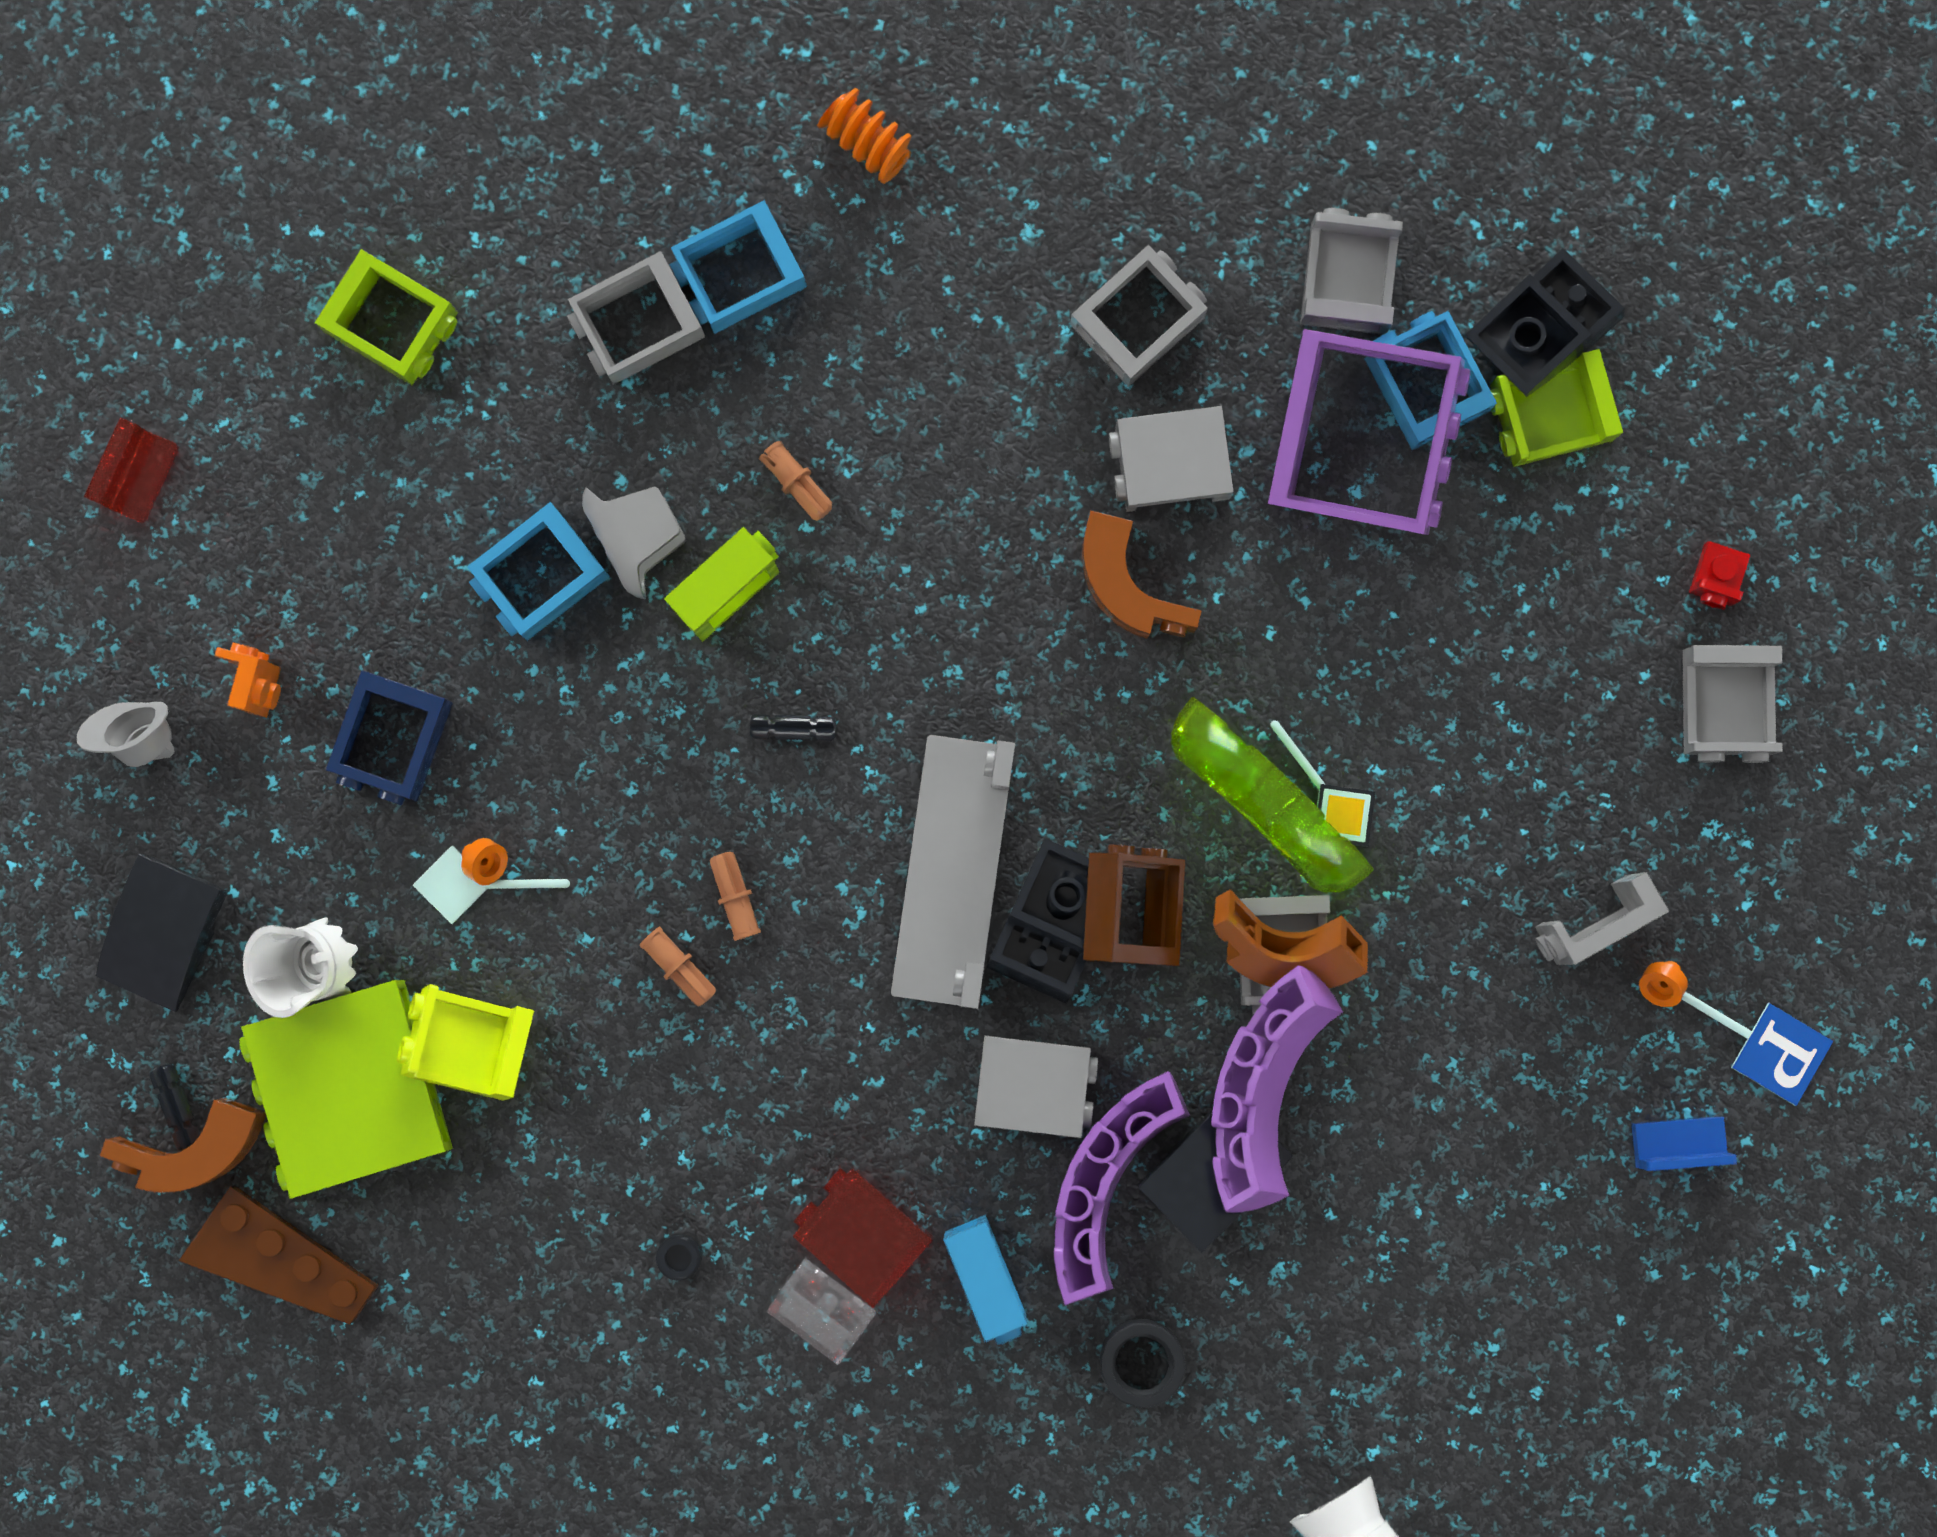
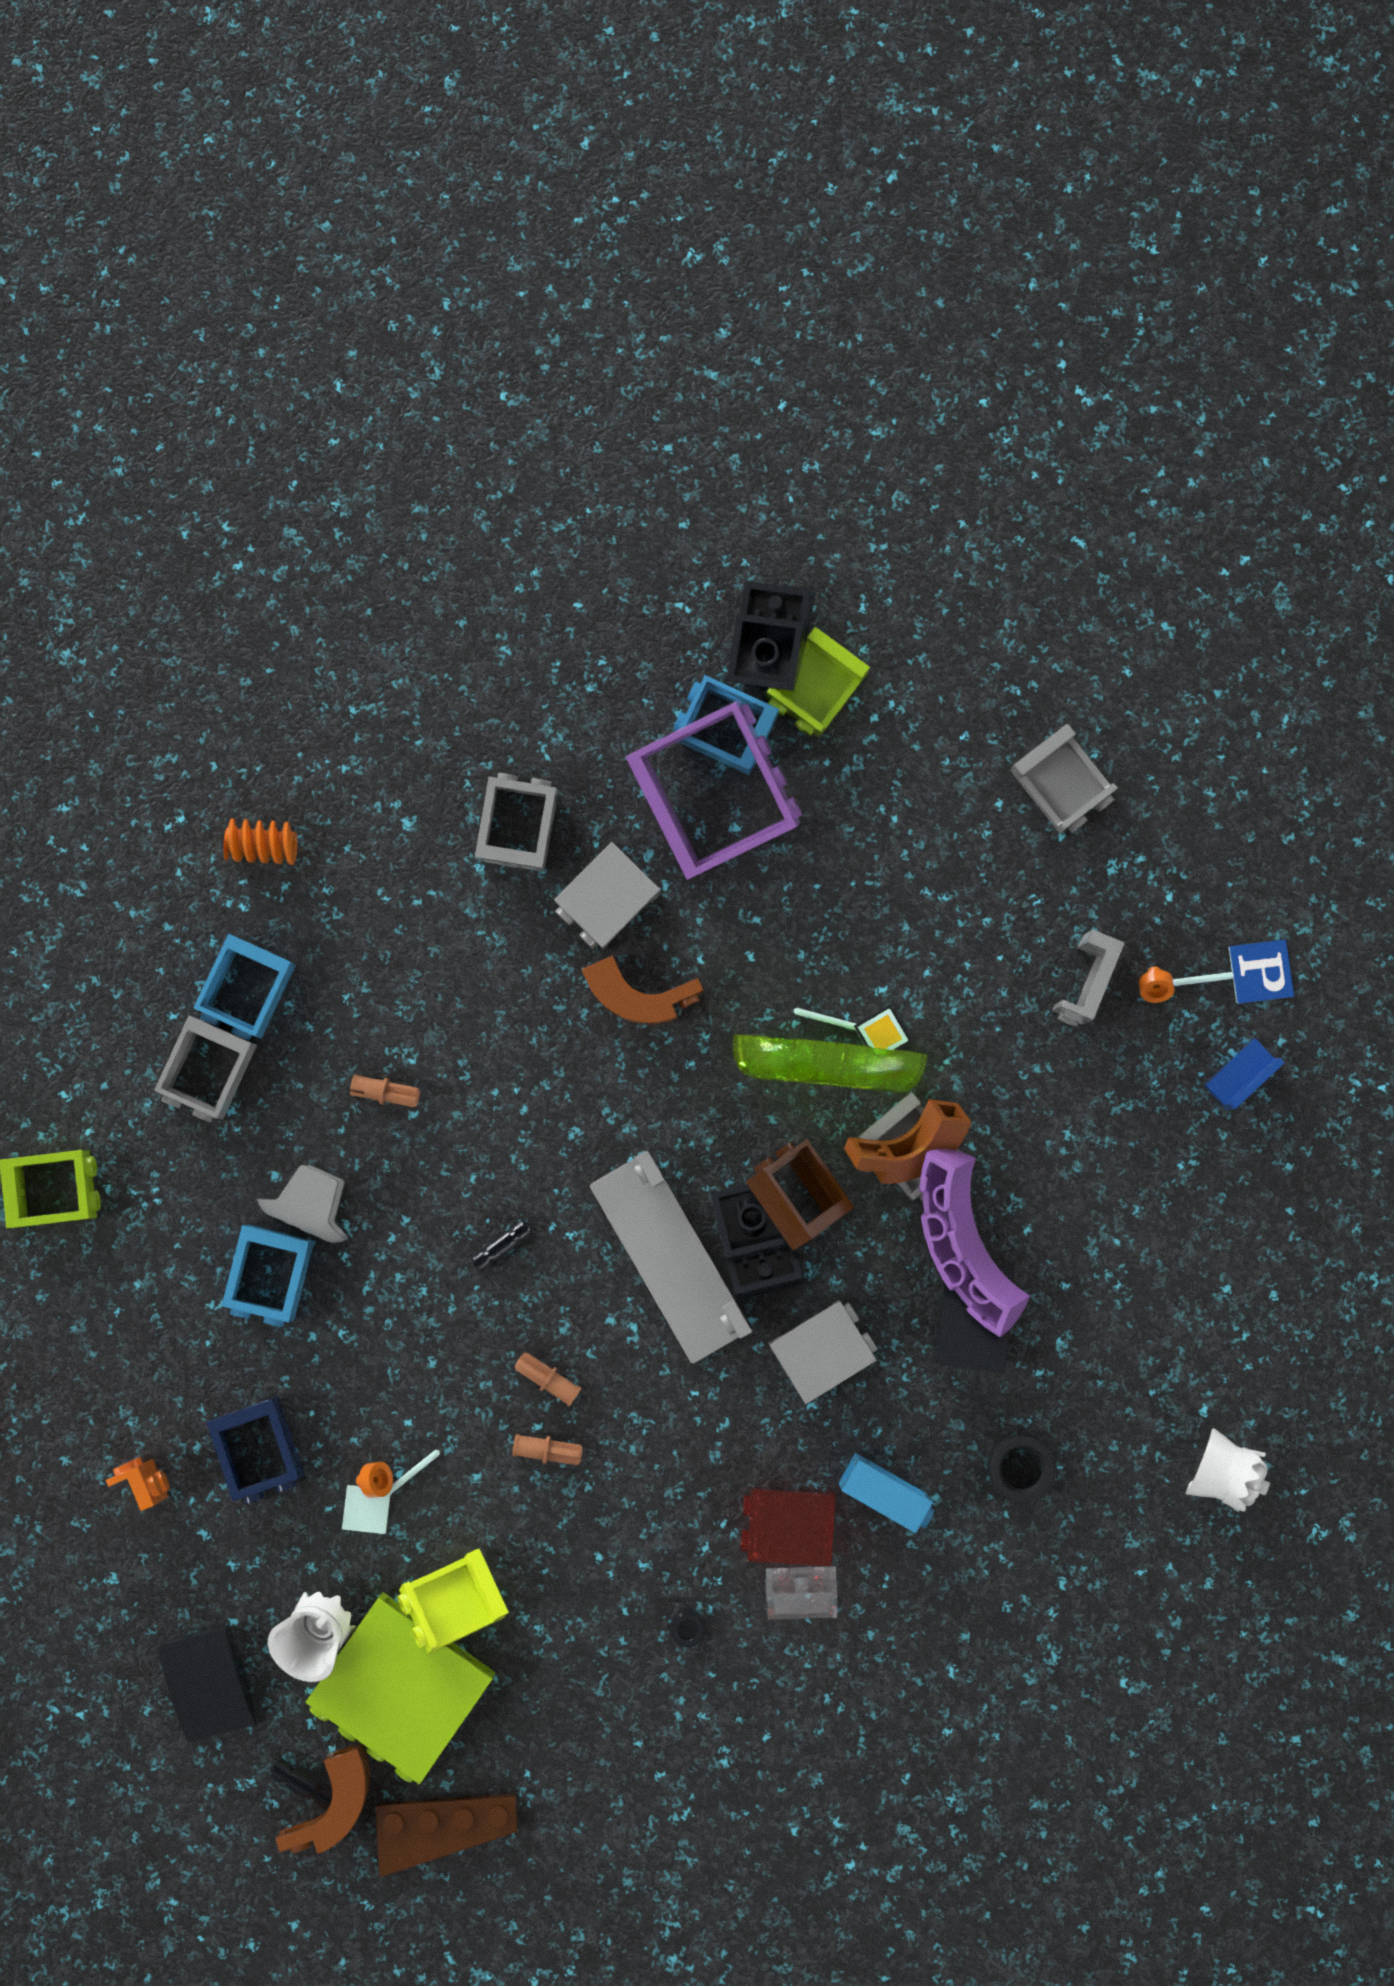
camera: 35 degrees left, 0 degrees up
(130, 732) = (89, 1574): light grey piece -> none
(724, 582) = (389, 1191): lime window -> none
(1094, 1177) = (904, 1380): medium lavender brick -> none
(1351, 271) = (626, 694): light grey panel -> none
(1719, 575) = (996, 707): red bracket -> none

